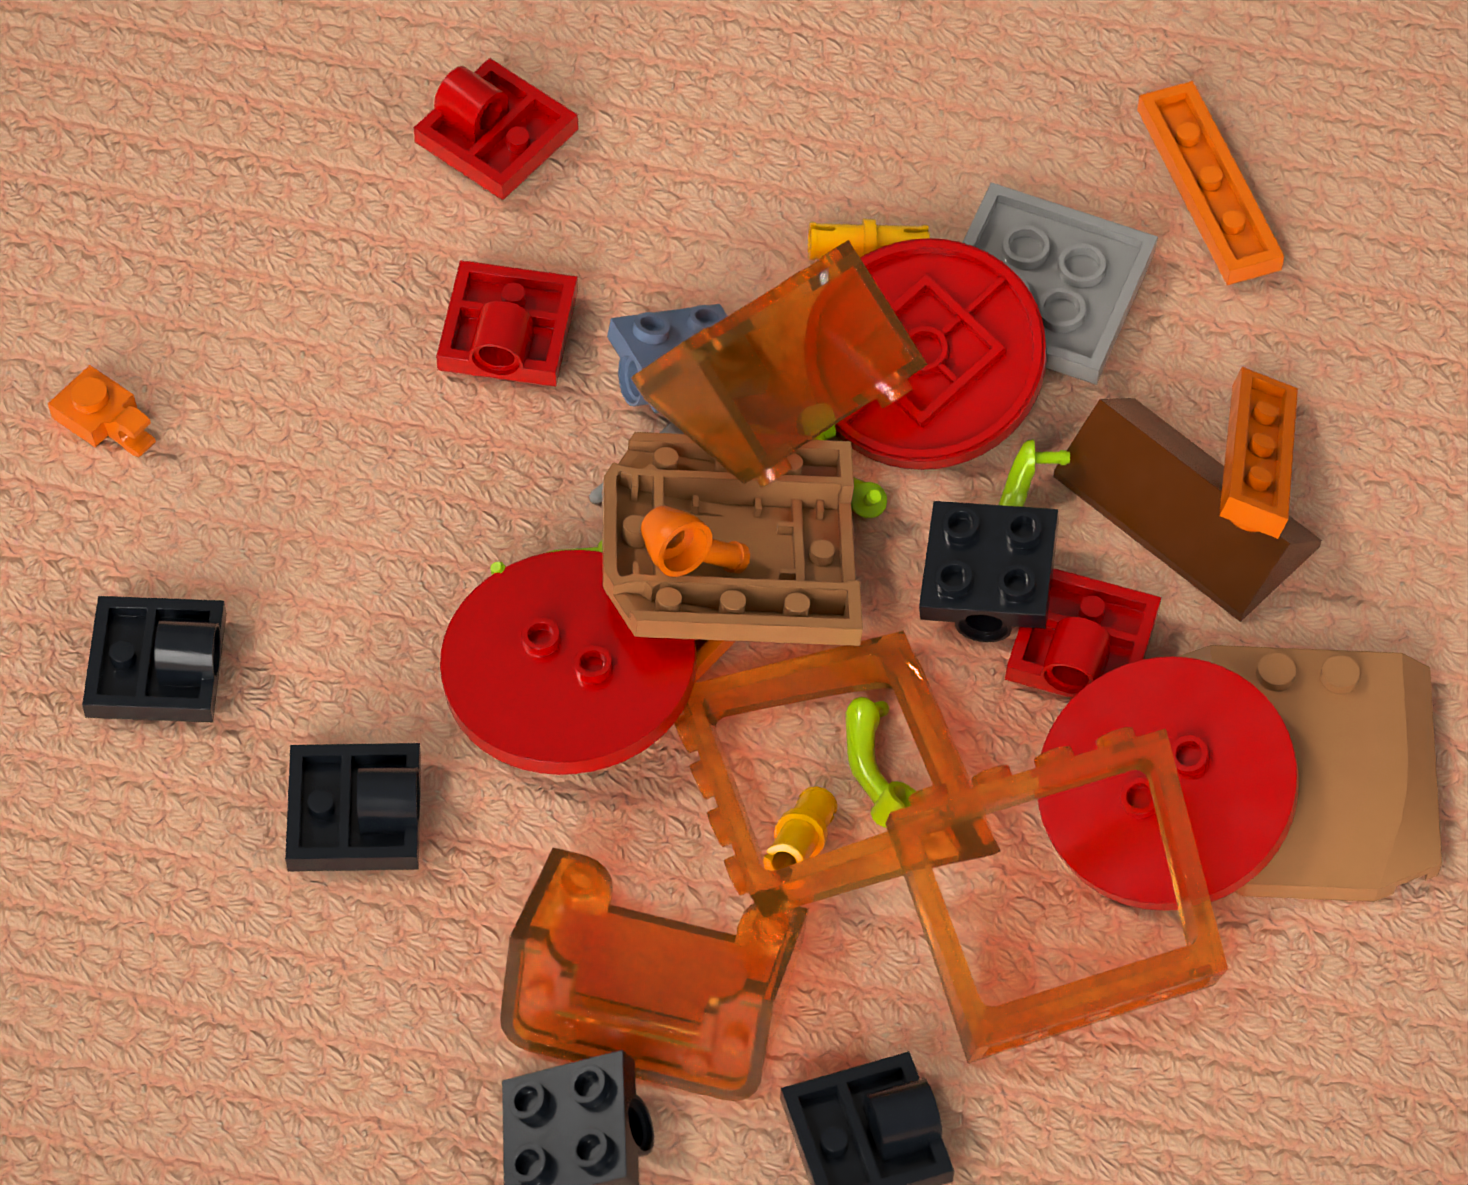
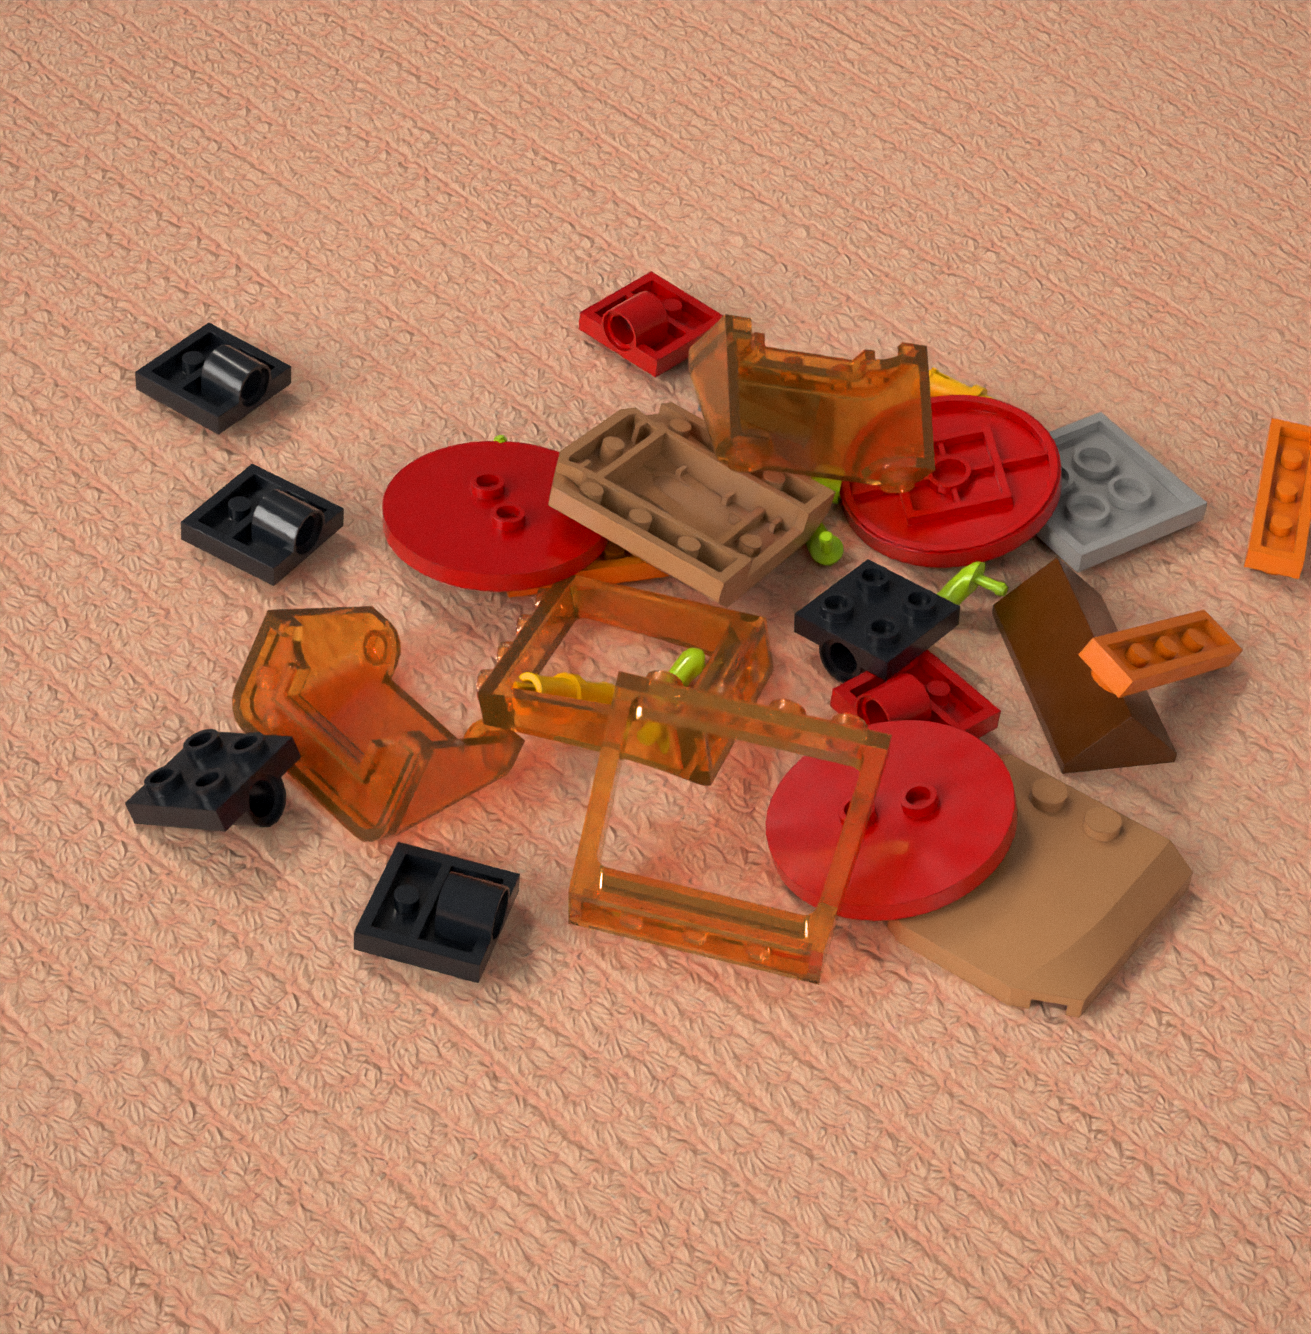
camera: 30 degrees right, 15 degrees down
(101, 408) = (320, 237): orange plate -> none
(494, 126) = (752, 217): red plate -> none
(682, 541) = (637, 468): orange bar -> none

